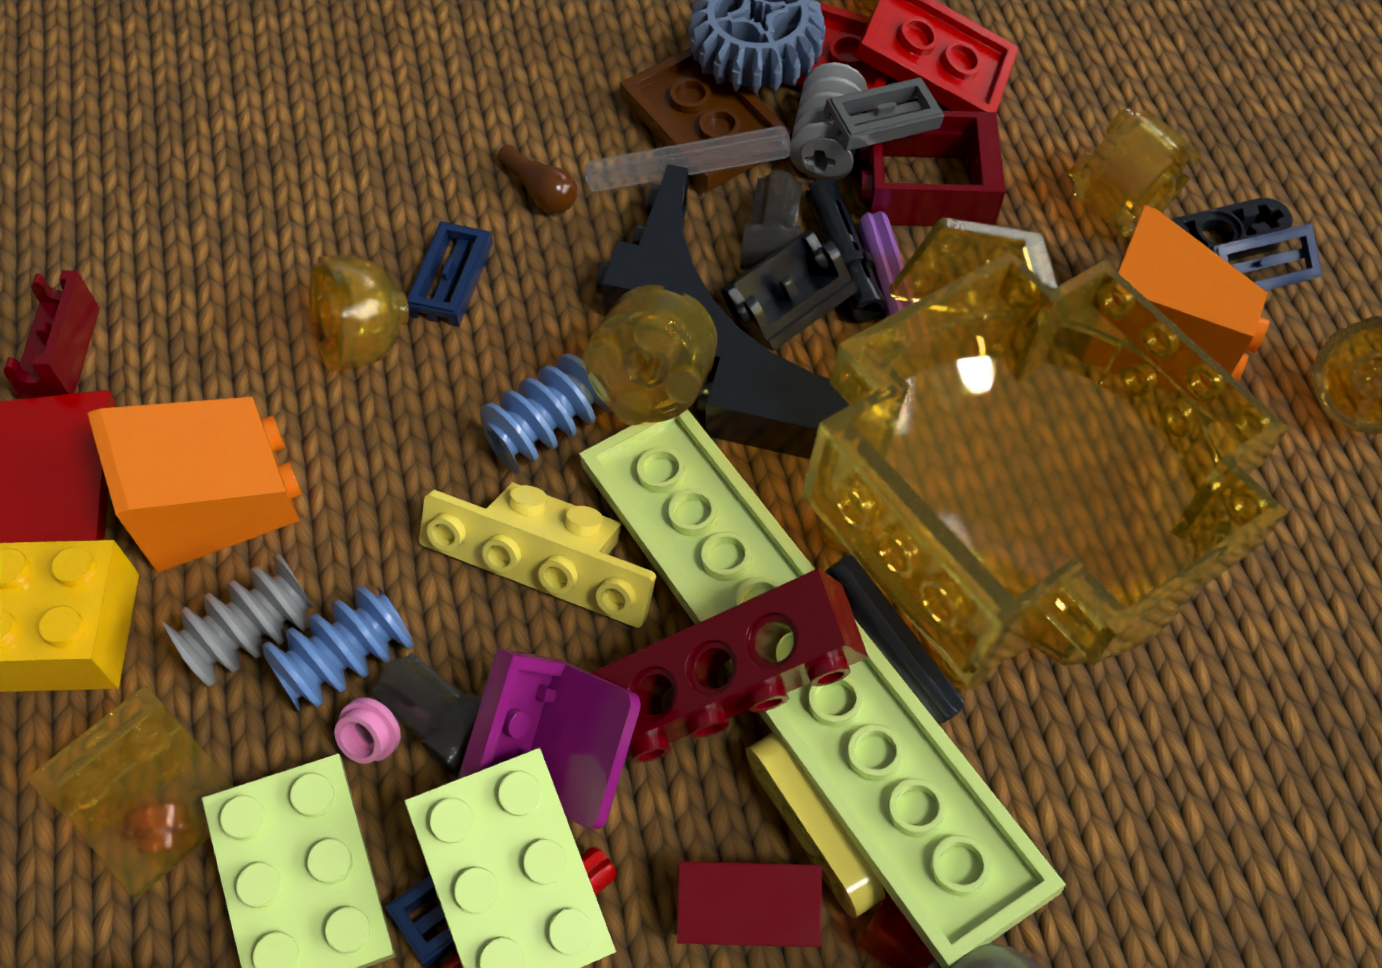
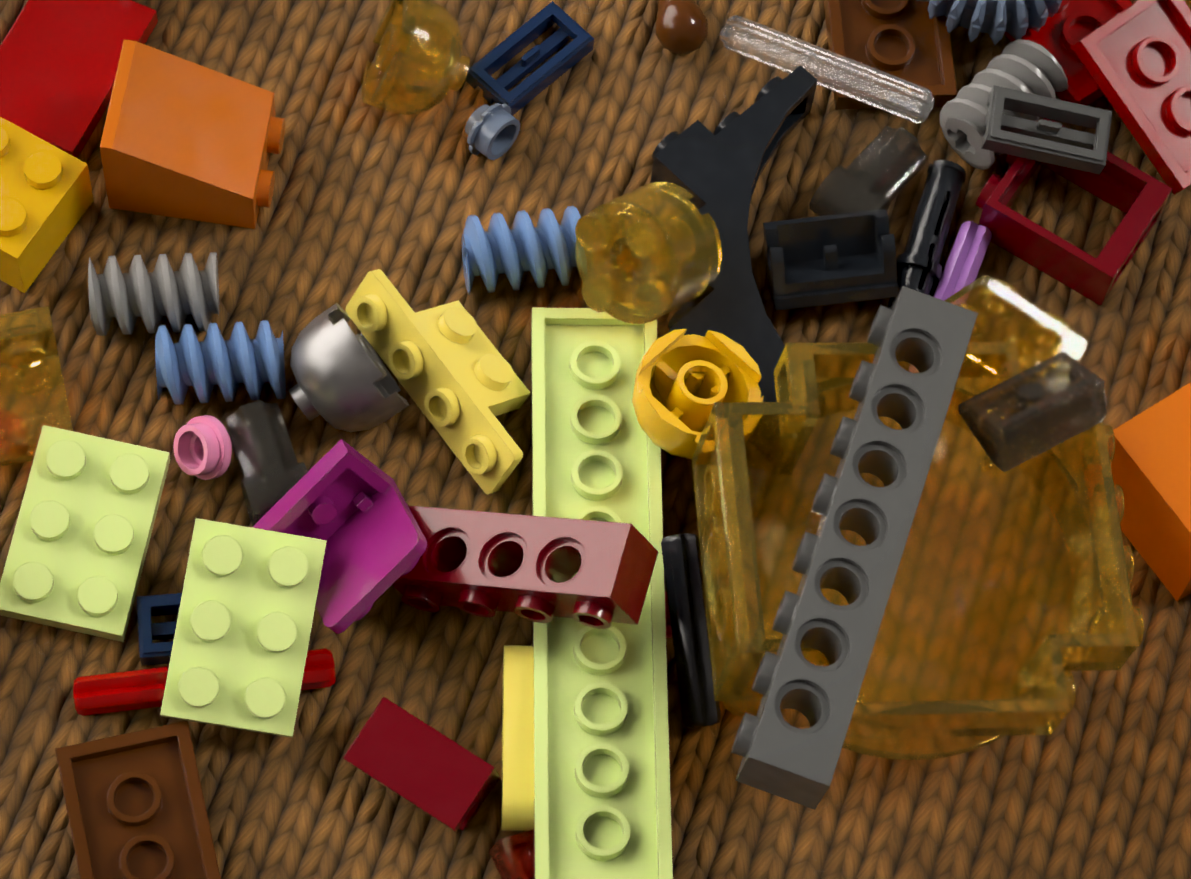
camera: 25 degrees right, 5 degrees up
(453, 338) = (491, 130): none -> sand blue plate
(455, 596) = (341, 375): none -> flat silver cylinder
(765, 440) = (684, 379): none -> yellow cylinder
(1040, 475) = (802, 761): none -> dark grey brick
(1068, 290) = (1035, 410): none -> clear smoke slope

